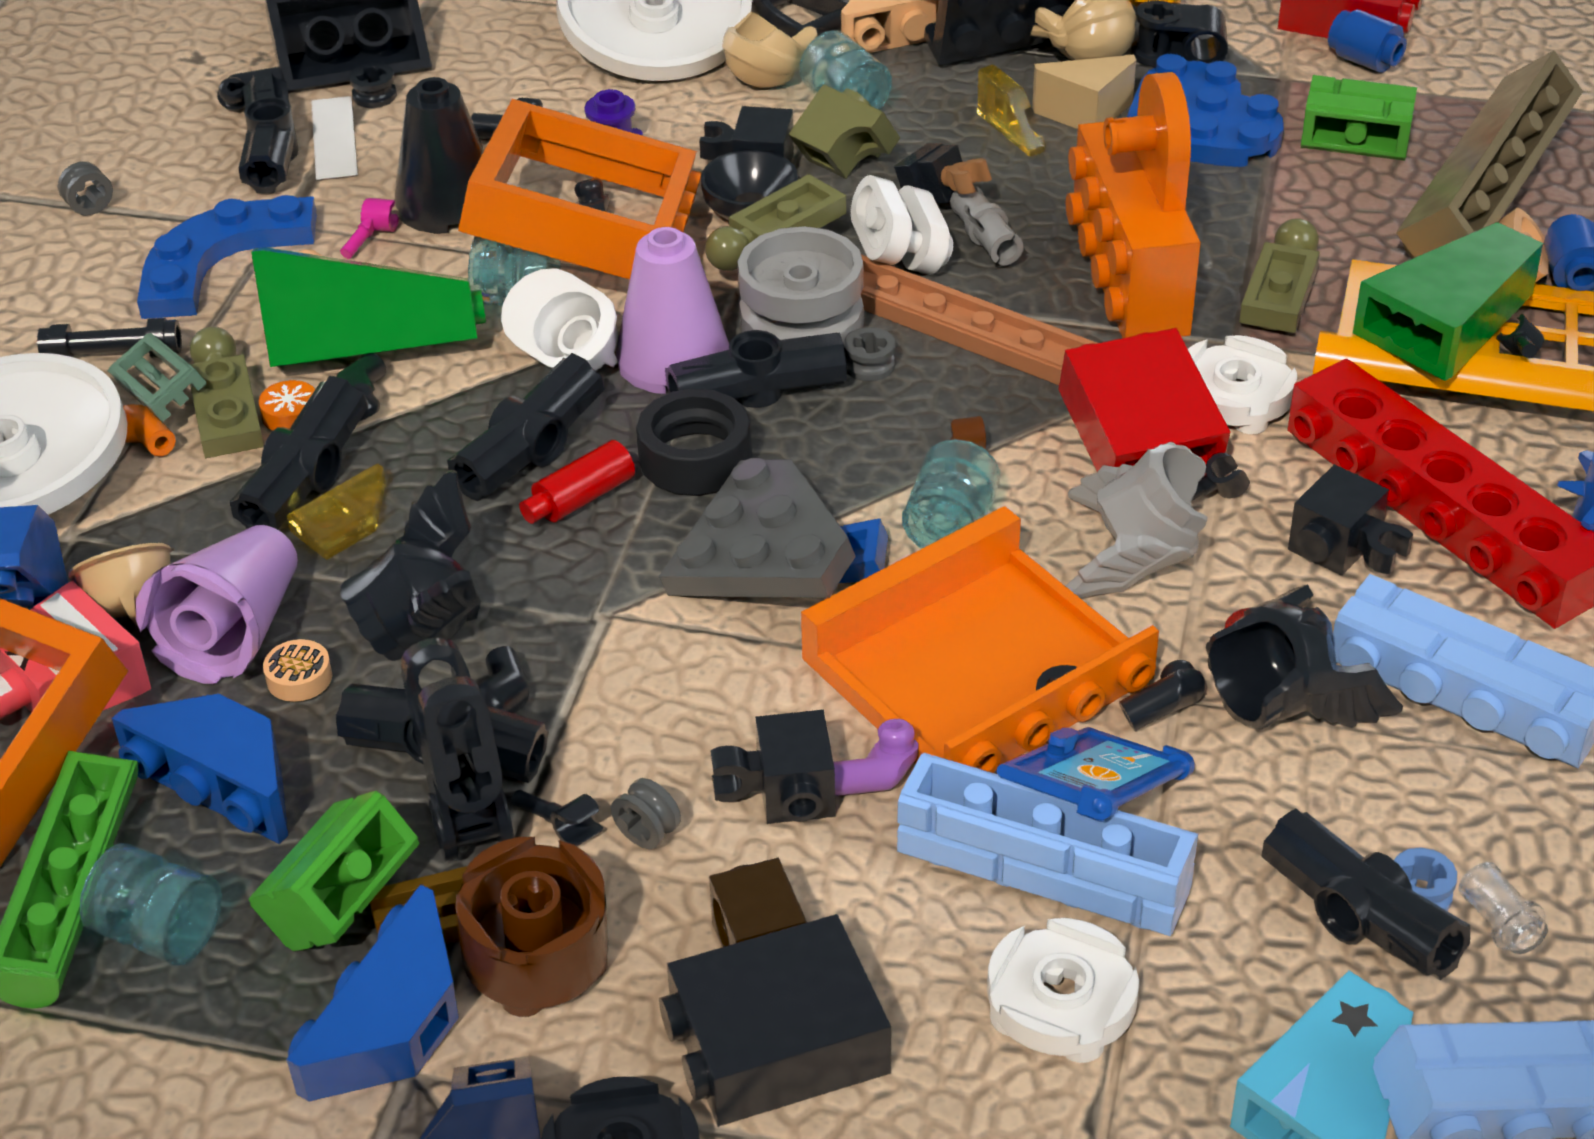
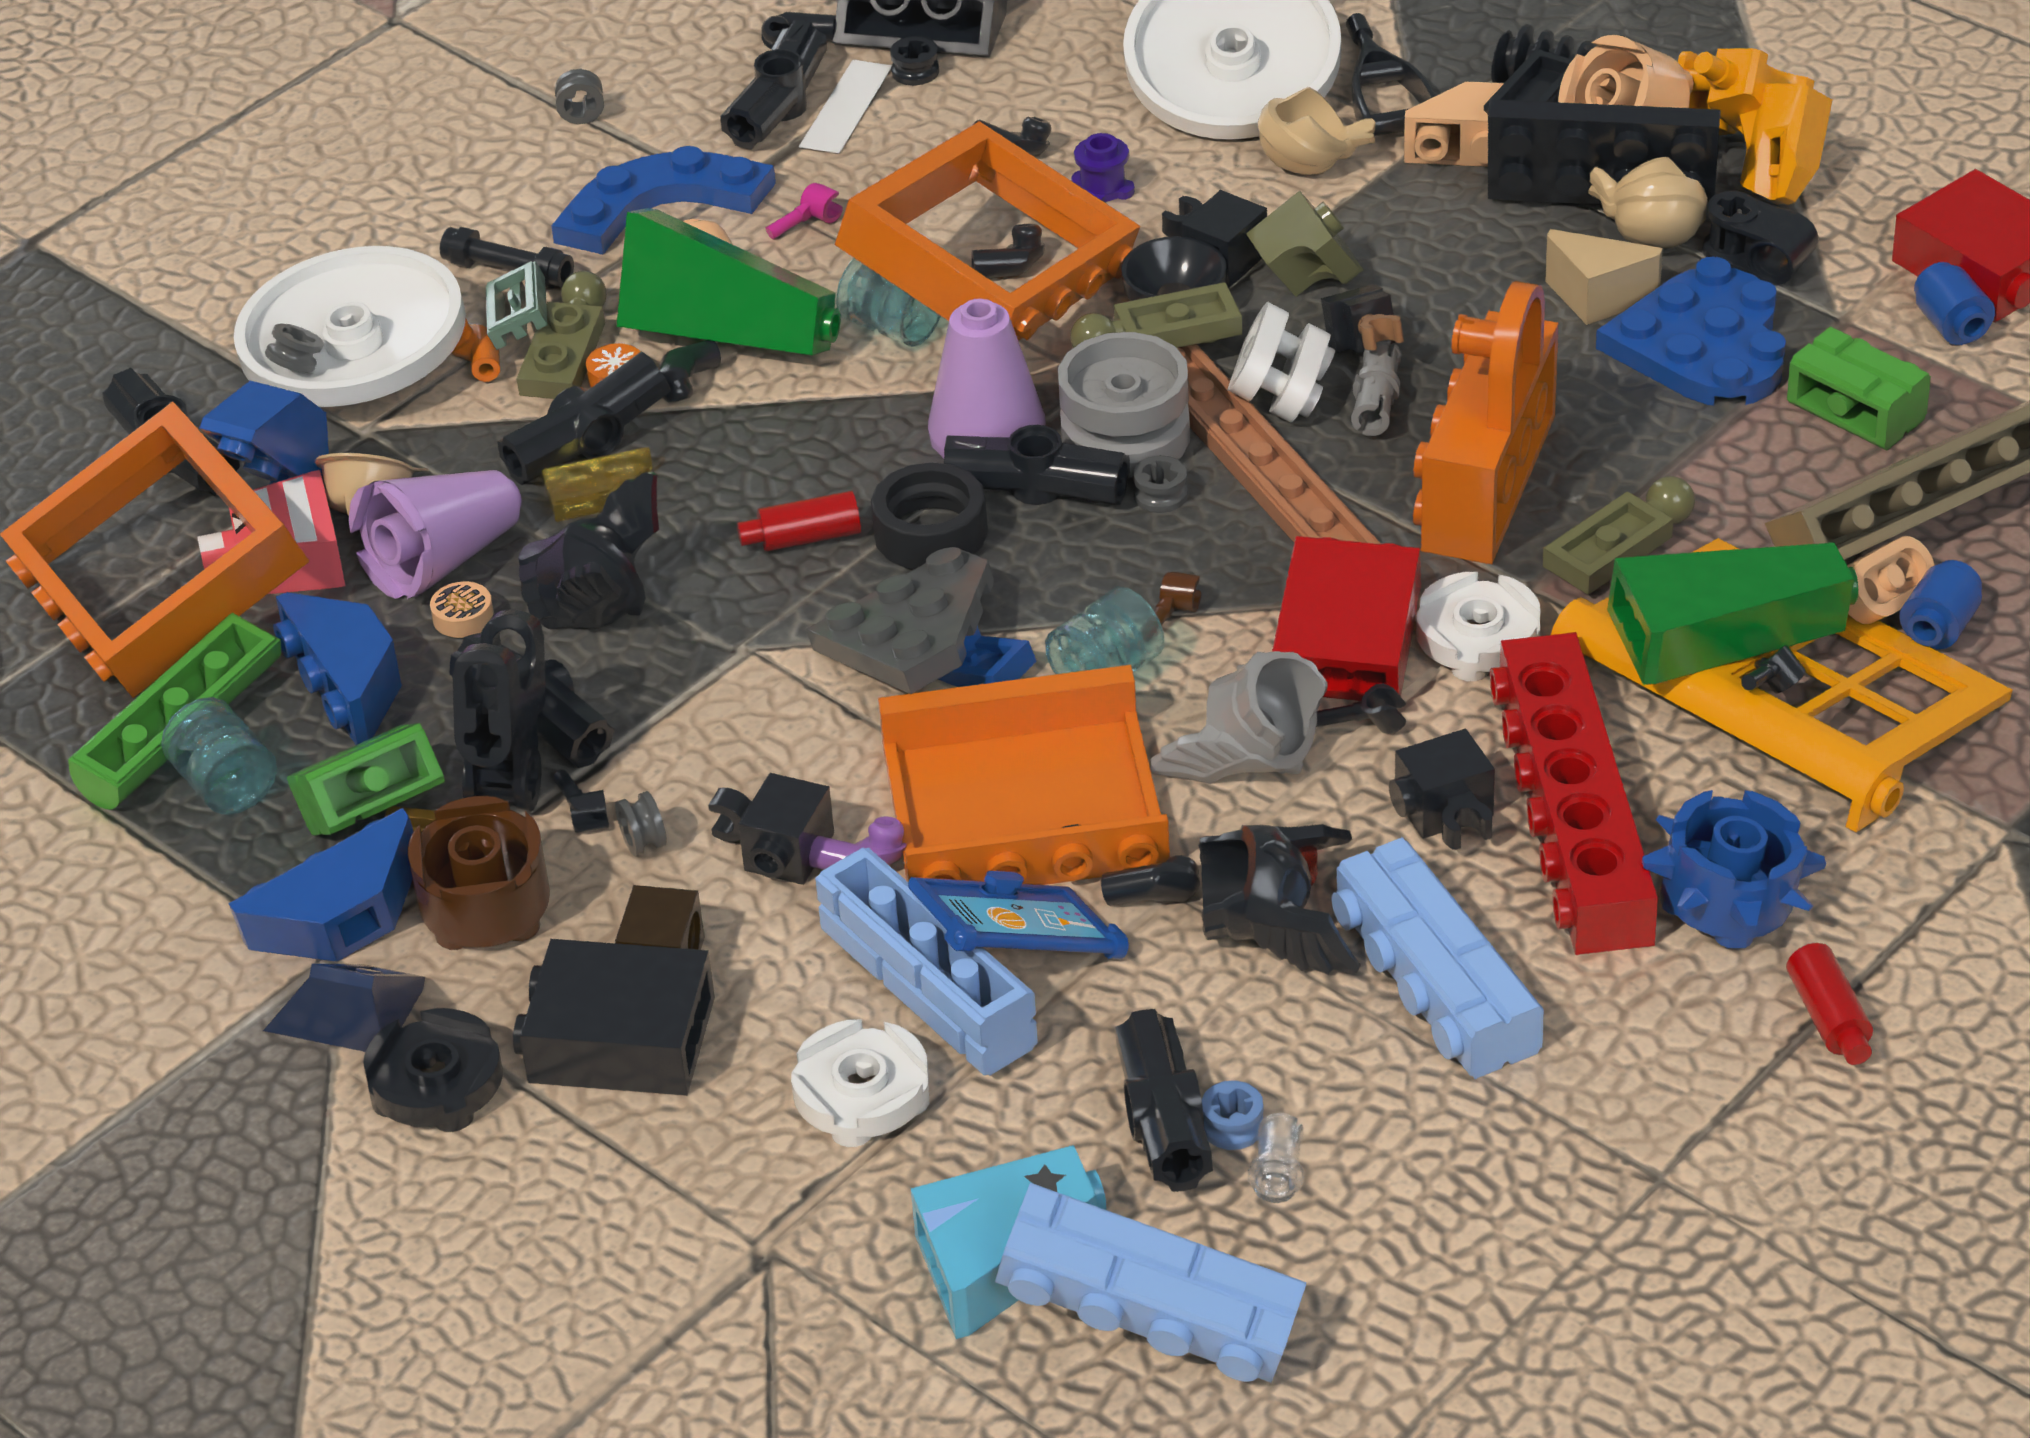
camera: 30 degrees right, 0 degrees up
(435, 156) = (889, 136): black cone -> none
(507, 683) = (611, 684): black arm -> none
(527, 428) = (792, 456): black piece -> none
(560, 315) = (888, 365): white piece -> none
(844, 64) = (1363, 184): clear light blue wheel -> none
(1003, 106) = (1501, 258): clear yellow tile -> none

